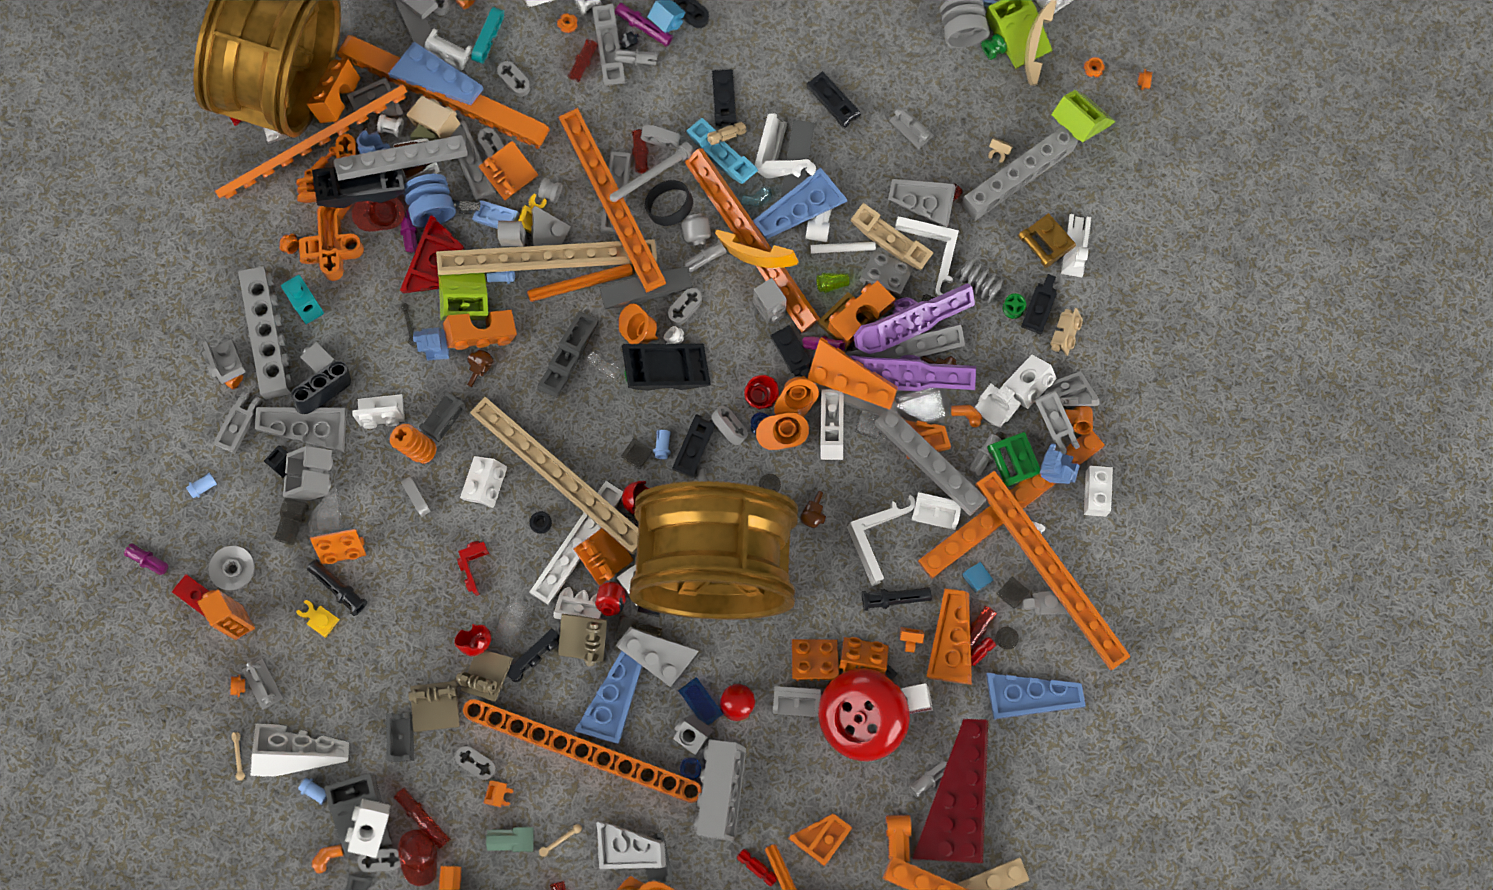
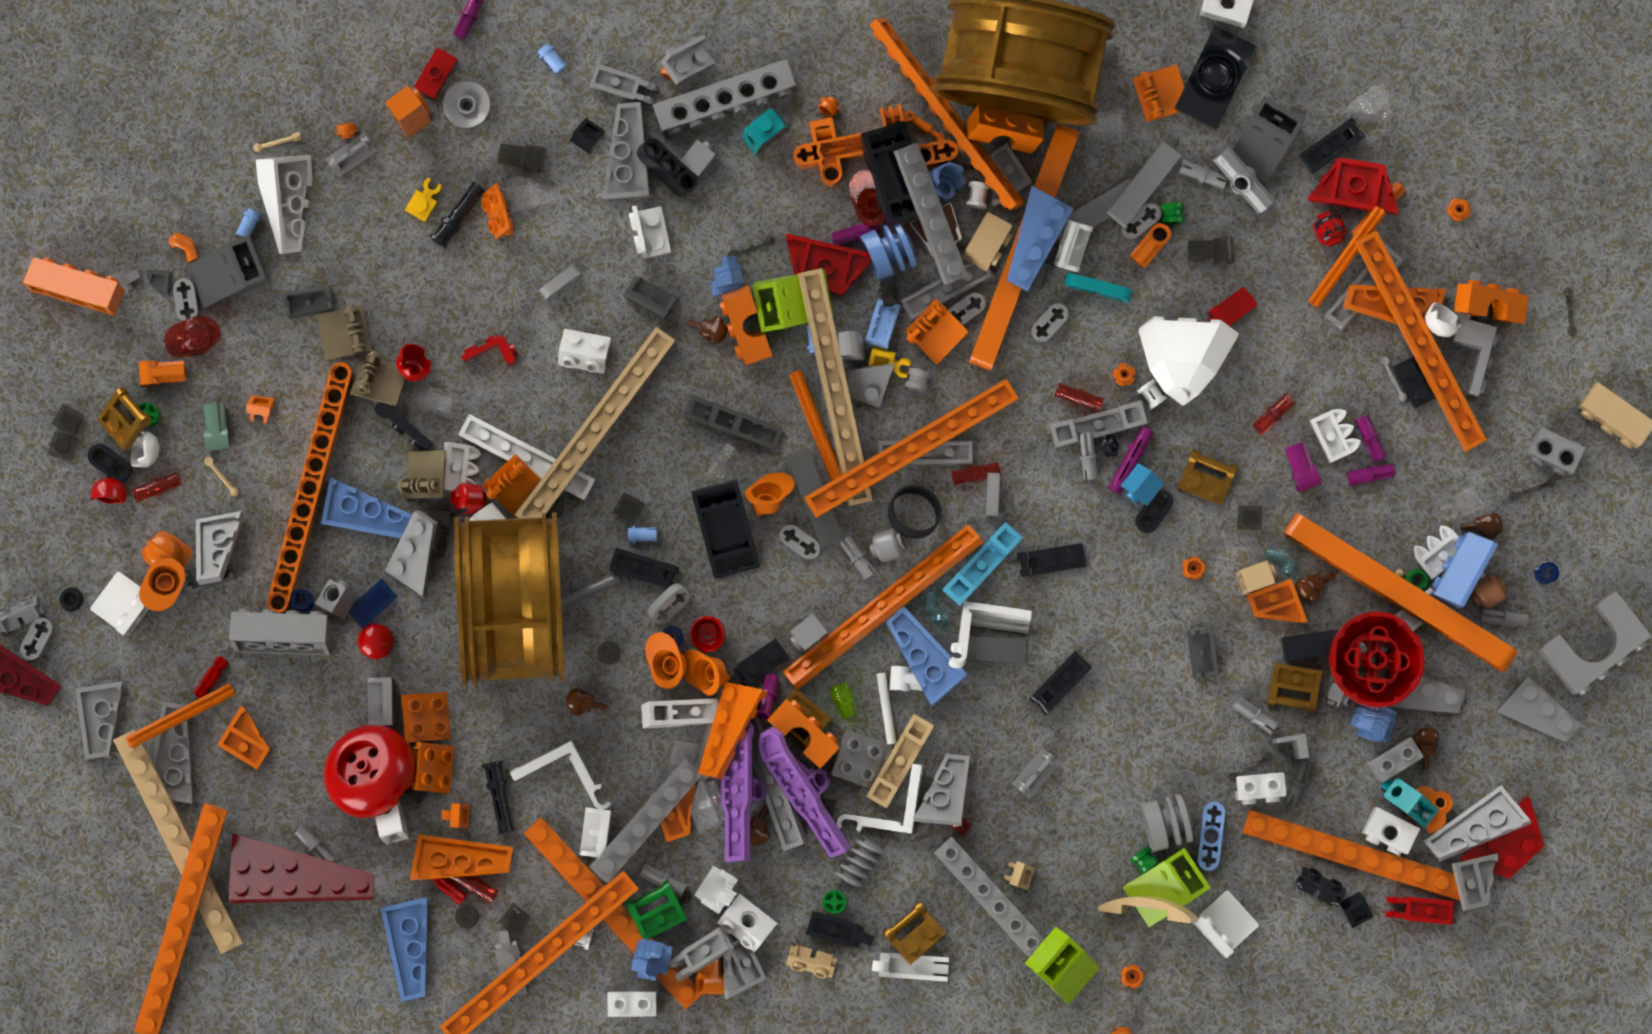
camera: 85 degrees right, 10 degrees up
(313, 466) = (578, 176): light grey piece -> none
(367, 841) = (200, 286): white brick -> none
(413, 443) = (613, 272): orange piece -> none
(419, 815) = (231, 334): clear red pin -> none
(422, 133) = (967, 233): olive slope -> none
(479, 758) = (285, 379): light grey beam -> none
(537, 516) = (553, 416): black plate -> none
(630, 494) = (578, 514): red hair -> none
(674, 335) = (763, 534): white plate -> none
(682, 153) = (977, 521): light grey piece -> none
(726, 133) = (1005, 567): tan axle -> none
(777, 258) = (855, 634): light orange slope -> none
(898, 835) = (256, 817): orange piece -> none
(969, 412) = (709, 859): orange arm -> none
(977, 577) = (529, 881): dark azure slope -> none

